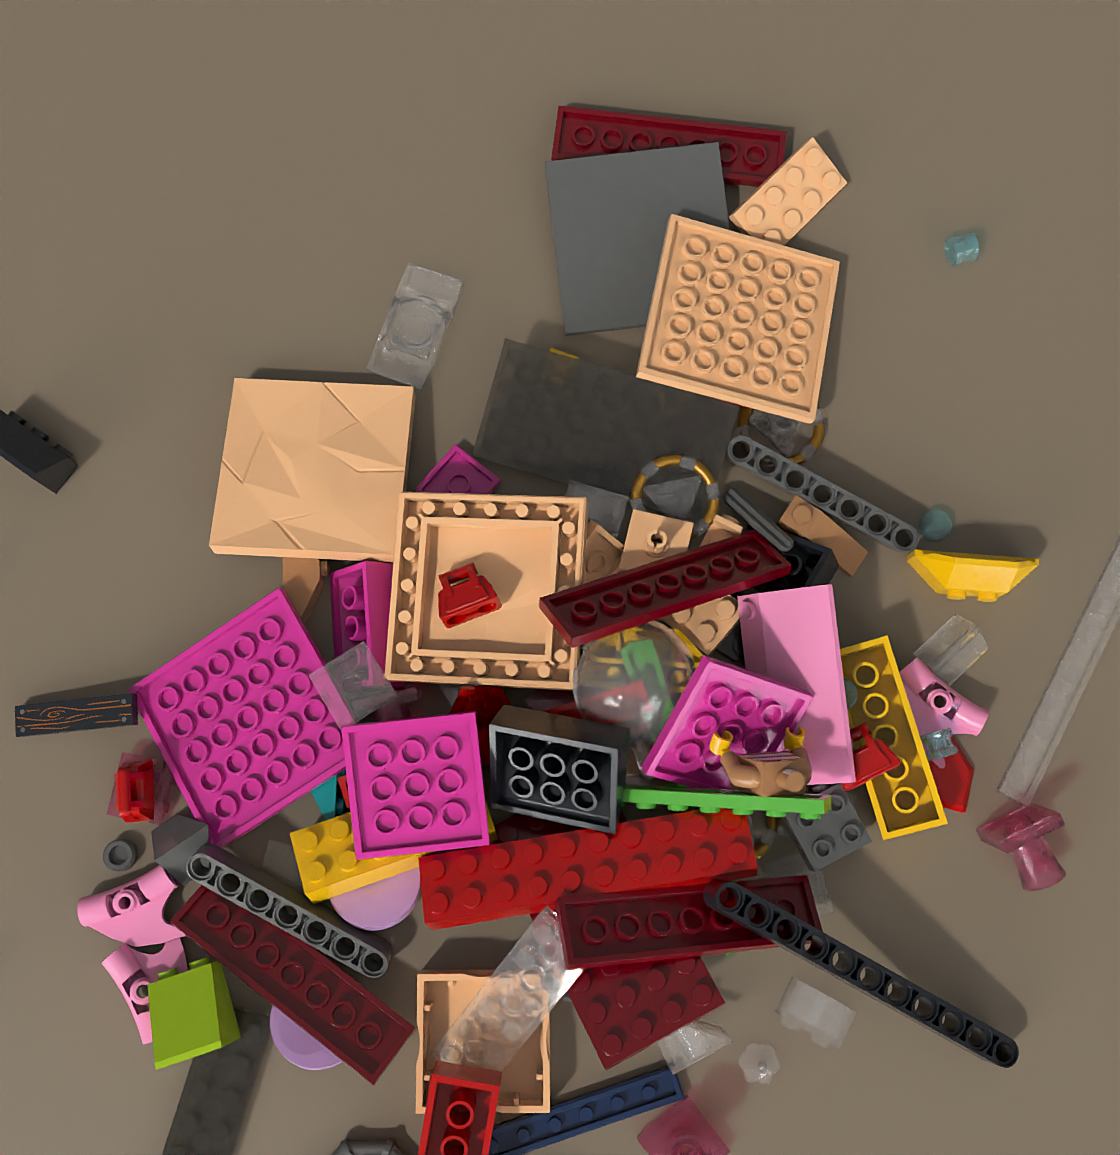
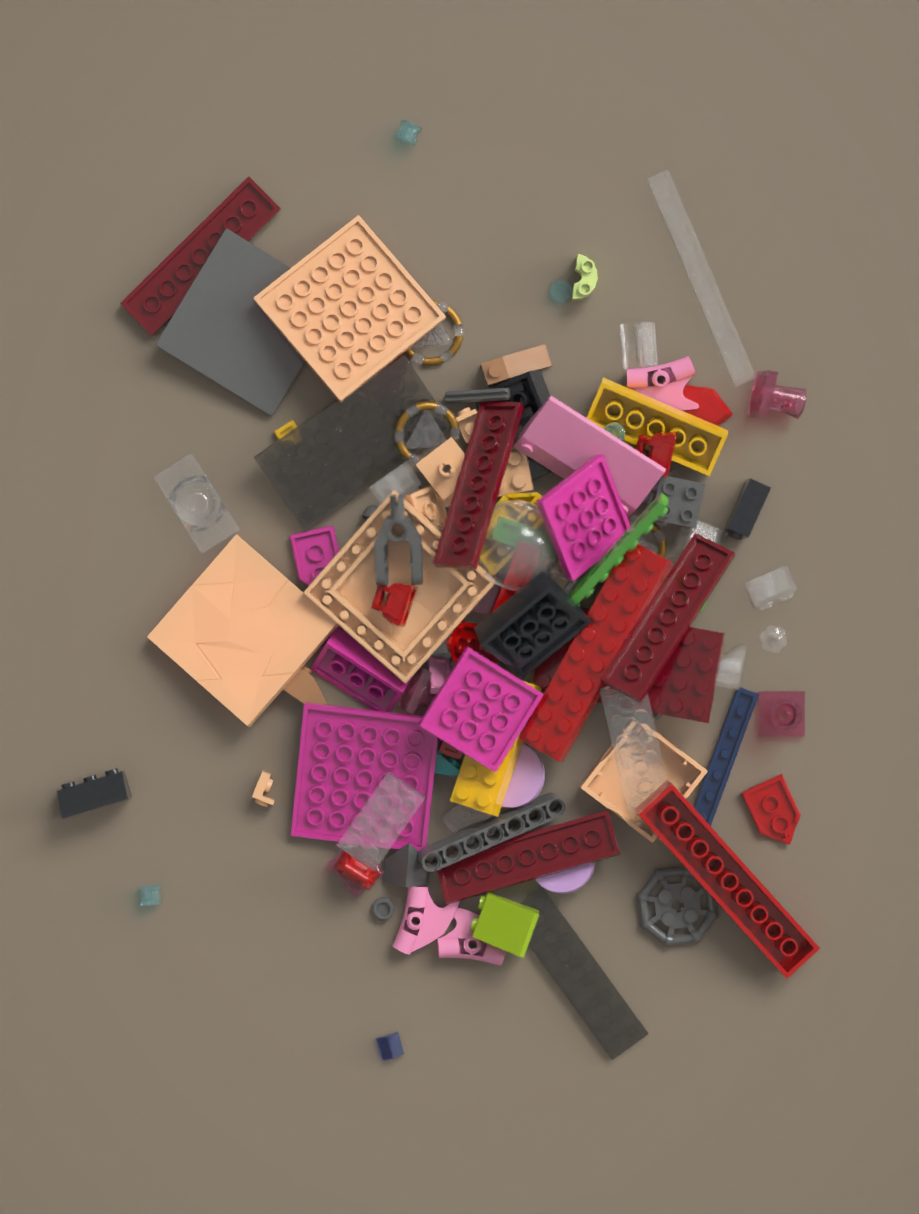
camera: 55 degrees left, 10 degrees up
(76, 715) = (283, 876): black tile -> none
(161, 617) = (263, 785): none -> light nougat bracket
(210, 773) = (381, 820): none -> clear plate
(353, 685) = (396, 703): clear tile -> none
(430, 704) = (440, 670): none -> bright pink tile
(517, 528) = (386, 534): none -> dark grey piece
(766, 772) = (623, 514): medium nougat torso -> none
(790, 196) = (293, 211): light nougat plate -> none
(836, 495) = (502, 346): dark grey beam -> none
(848, 969) = (758, 552): black beam -> none
(882, 913) = (746, 509): none -> black brick
(939, 744) = (683, 400): clear light blue wheel -> none
(970, 574) = (605, 297): yellow wedge -> none
(978, 537) = (588, 275): none -> yellowish green cylinder

